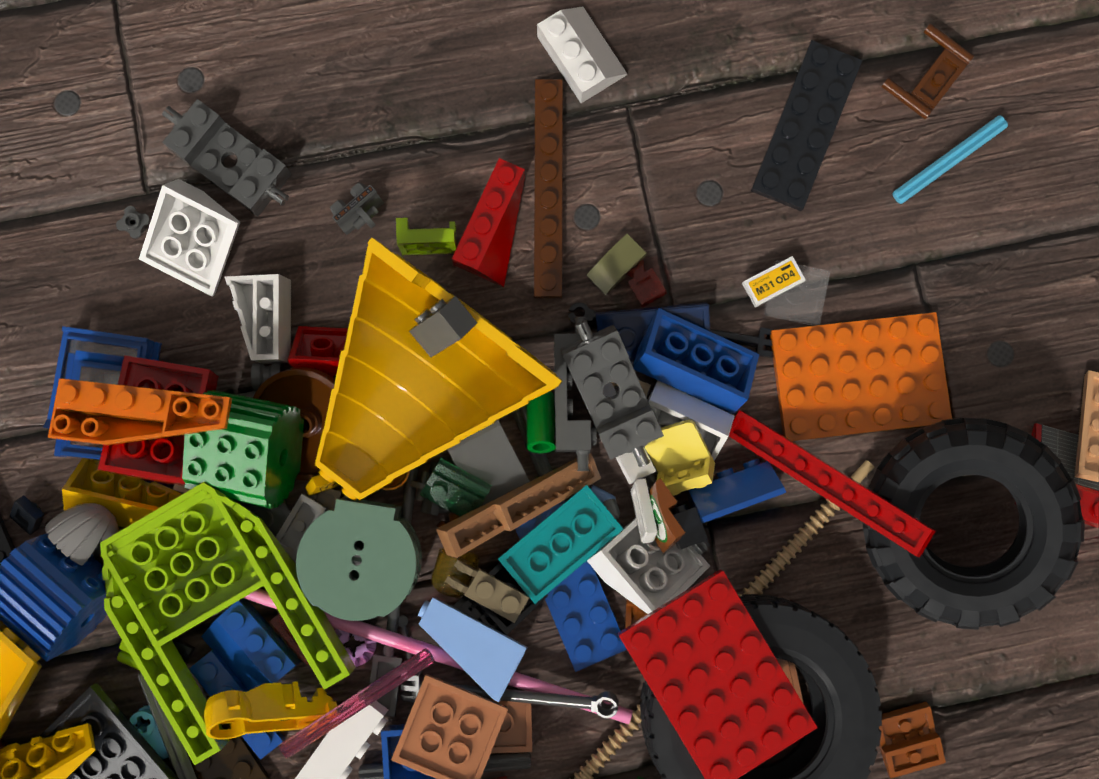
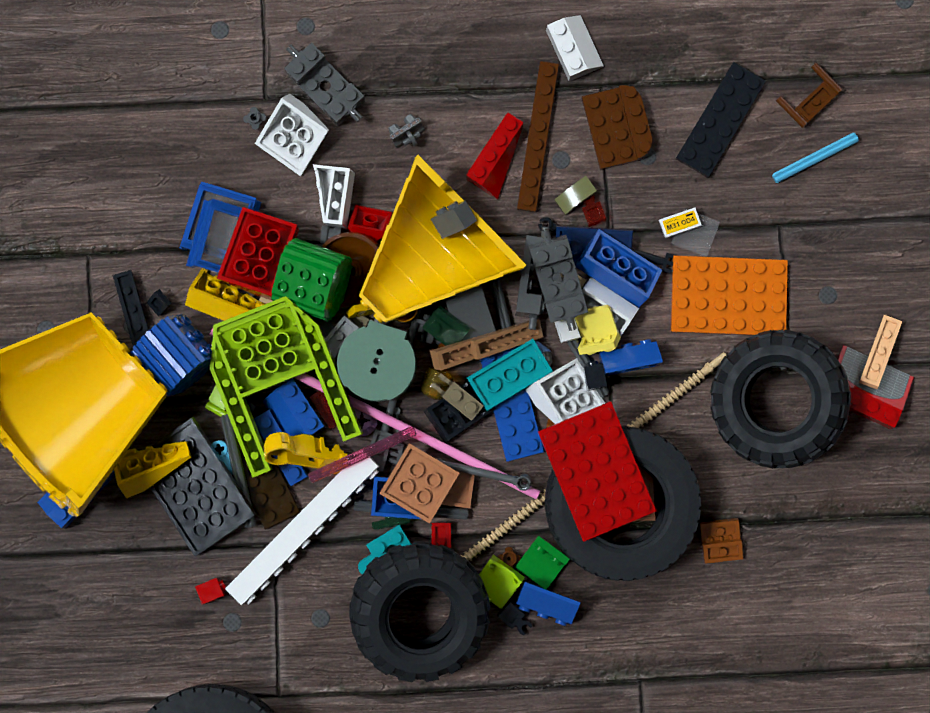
camera: 15 degrees right, 0 degrees up
(81, 530) = (200, 316): light grey hair -> none
(129, 414) = (248, 245): orange wedge -> none
(425, 240) = (450, 160): lime piece -> none
(478, 648) = (445, 432): light blue slope -> none
(541, 424) = (508, 293): green brick -> none
(643, 511) = (568, 361): white tile -> none
(661, 155) = (617, 126): none -> reddish brown plate
(668, 528) = (579, 372): dark orange slope -> none
(832, 484) = (691, 358): red plate -> none

